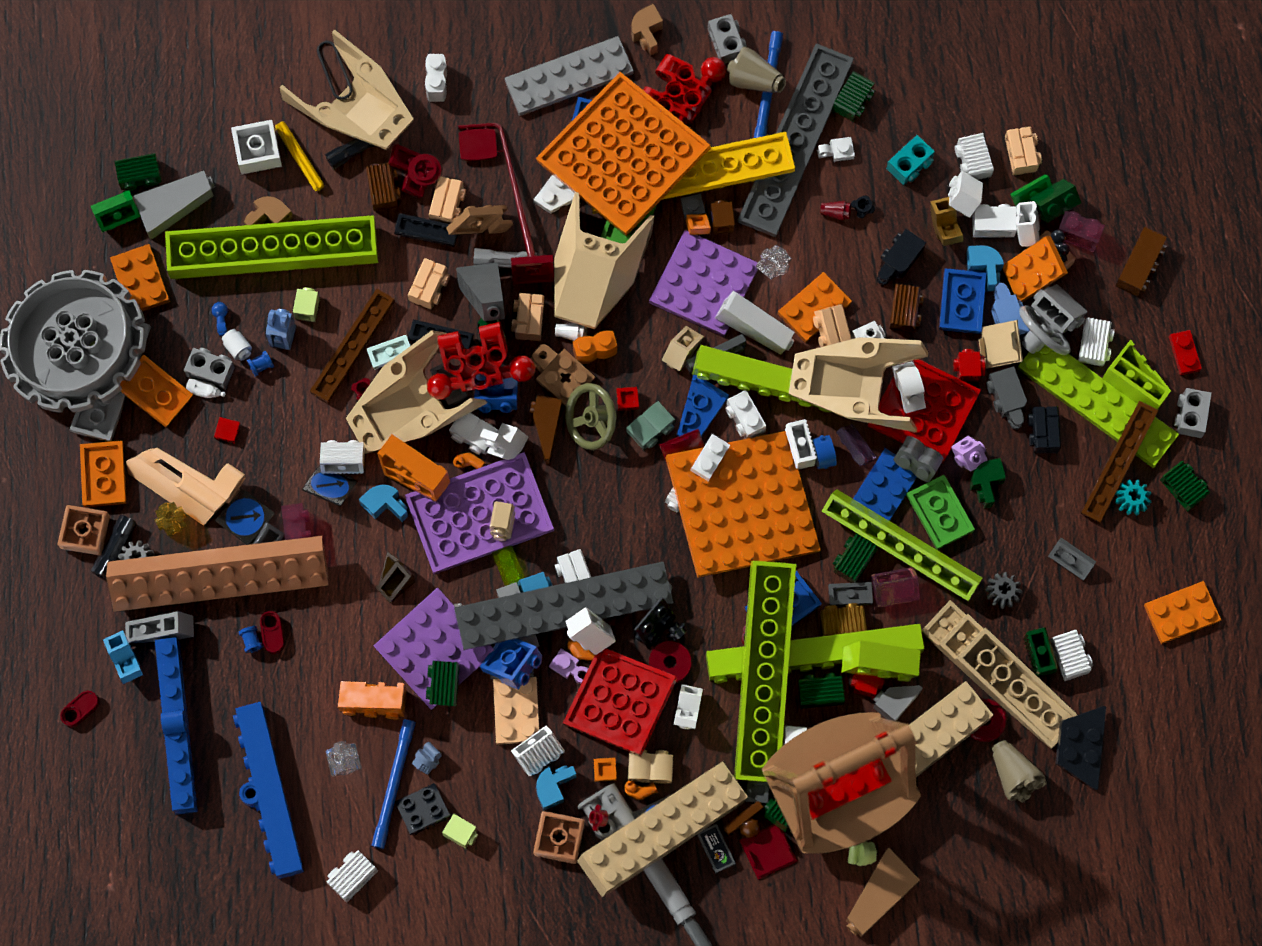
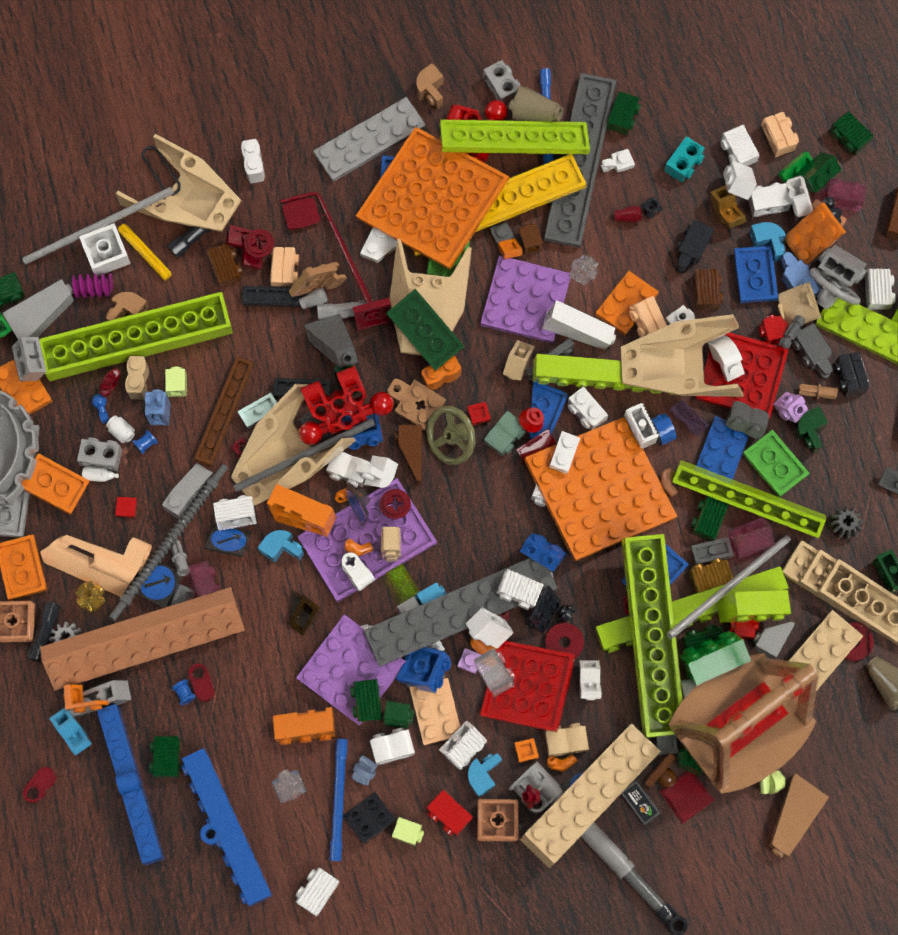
camera: 10 degrees left, 0 degrees up
(133, 626) = (74, 700): none -> orange bracket
(152, 251) = (29, 359): none -> light grey brick
(207, 529) = (125, 600): none -> dark grey hose
(218, 704) = (166, 756): none -> dark green brick
(234, 292) = (109, 382): none -> dark red gear
(236, 184) = (92, 286): none -> magenta piece
(254, 119) = (100, 224): none -> light grey piece
(263, 295) = (136, 380): none -> tan brick
(273, 495) = (179, 559): none -> light grey axle
(295, 425) = (186, 491): none -> light grey slope
(428, 283) = (281, 344): light nougat brick -> none
(431, 407) = (307, 453): none -> dark grey piece
(461, 547) = (359, 573): none -> white piece
(461, 738) = (392, 746): none -> white brick
(465, 521) = (359, 550): none -> orange arm
(473, 240) = (313, 299): none -> light grey cone
(474, 705) = (398, 715): none -> dark green brick
(476, 469) = (358, 501): none -> clear smoke piece
(508, 820) = (449, 813): none -> red brick
(509, 473) = (388, 498): none -> dark red gear
(529, 317) = (377, 357): light nougat brick -> none
(570, 331) = (415, 363): white cone -> none
(572, 566) = (460, 573): white brick -> none
(585, 297) = (425, 330): none -> dark green plate
(586, 679) = (494, 672): none -> clear brick
(630, 595) = (520, 589): none -> white brick
(665, 560) = (543, 552): none -> blue plate
(682, 415) = (531, 419): none -> red cone
(726, 102) = (514, 137): none -> lime plate
(816, 510) = (666, 482): none -> nougat arm
(826, 707) = (714, 657): none -> brick
(858, 635) = (728, 587): none -> light grey piece
(987, 371) = (792, 332): none -> dark grey axle
(1003, 442) = (818, 391): none -> medium nougat axle
(1102, 164) = (851, 133): none -> dark green brick

